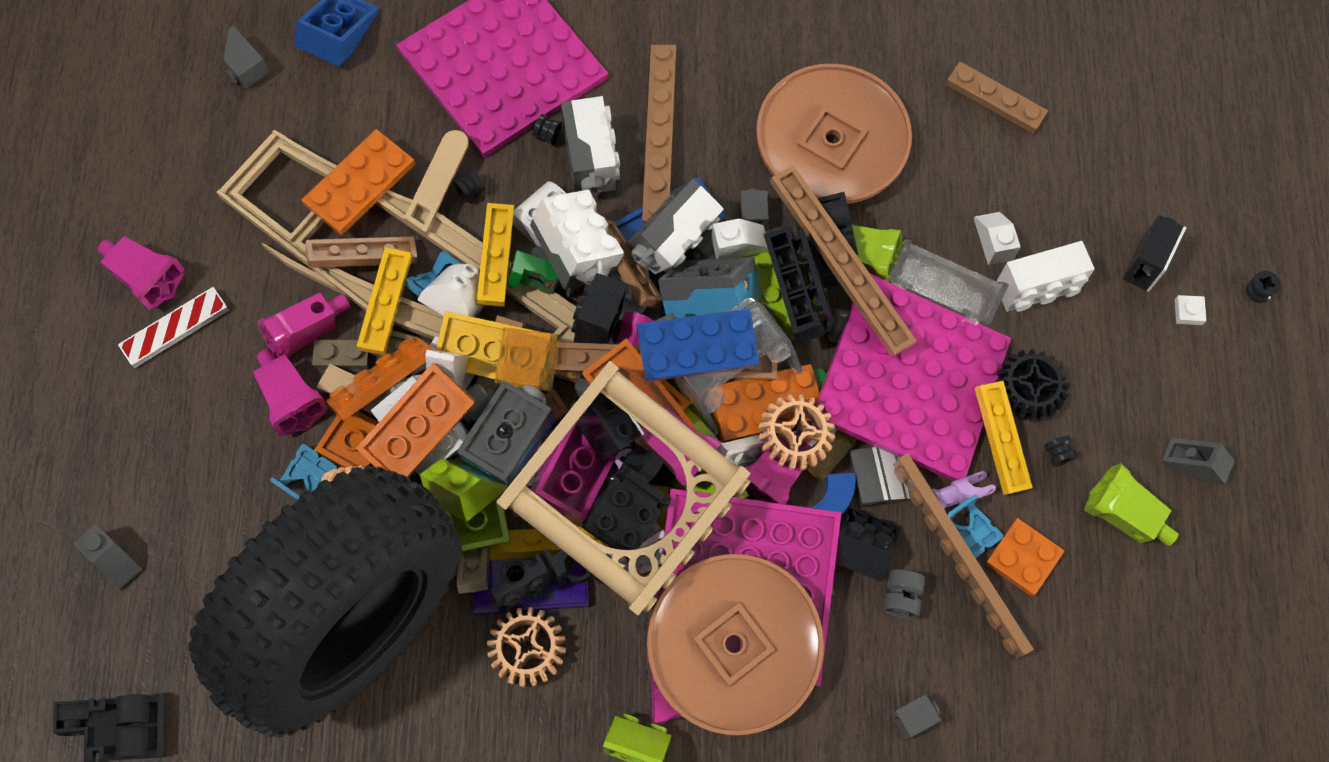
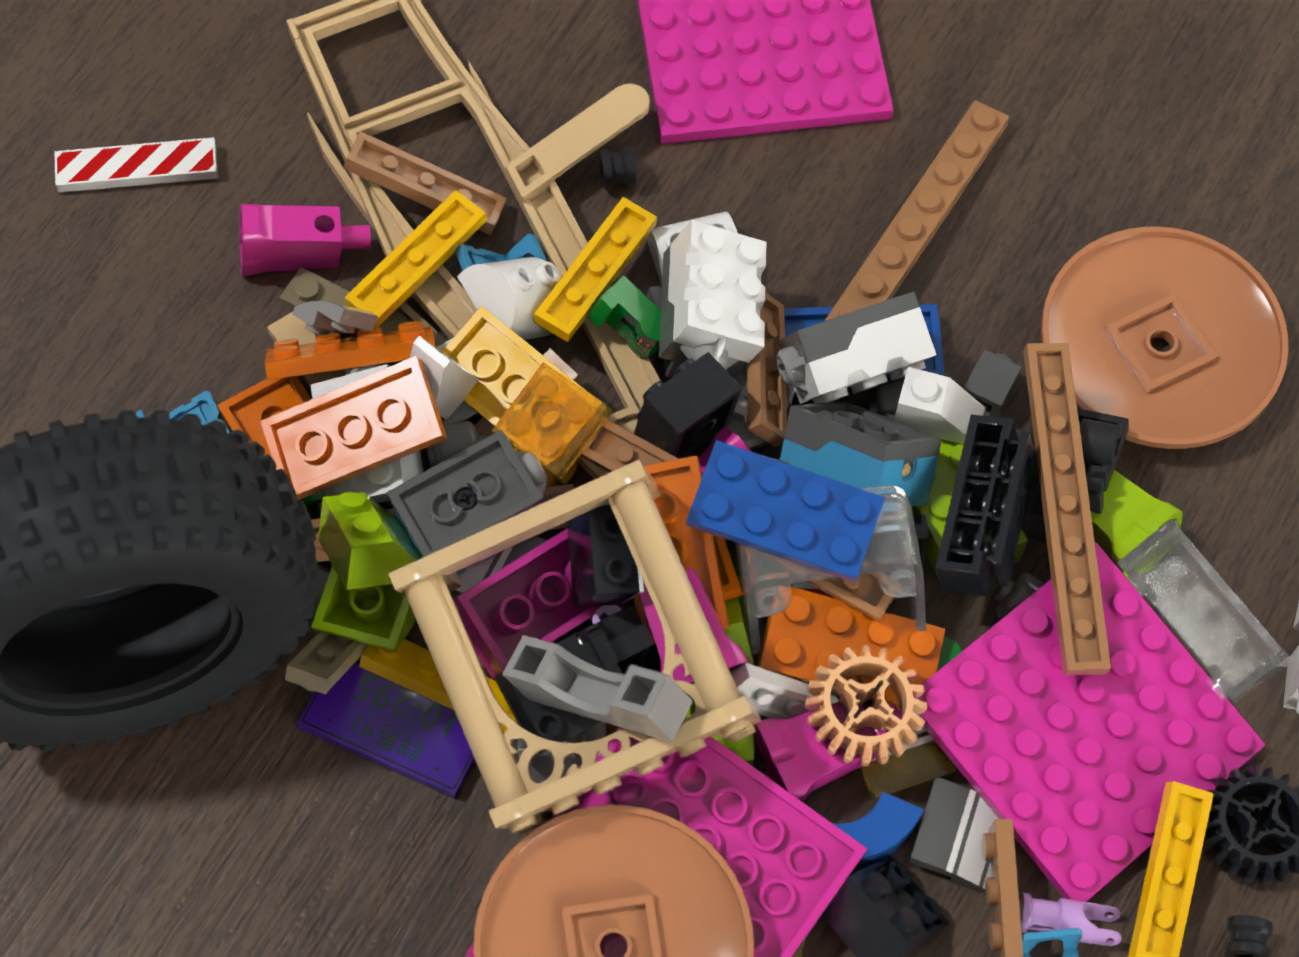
camera: 30 degrees right, 5 degrees down
(146, 273) = (140, 80): dark pink piece -> none
(290, 400) = (222, 319): dark pink piece -> none
(351, 364) = (328, 316): none -> light grey slope
(358, 182) = (473, 92): orange plate -> none
(515, 641) = (323, 814): light nougat gear -> none
(533, 579) = (377, 711): black plate -> none
(547, 129) = (766, 144): black wheel -> none
(590, 145) = (808, 190): piece -> none
(680, 502) = (634, 700): none -> light grey arch

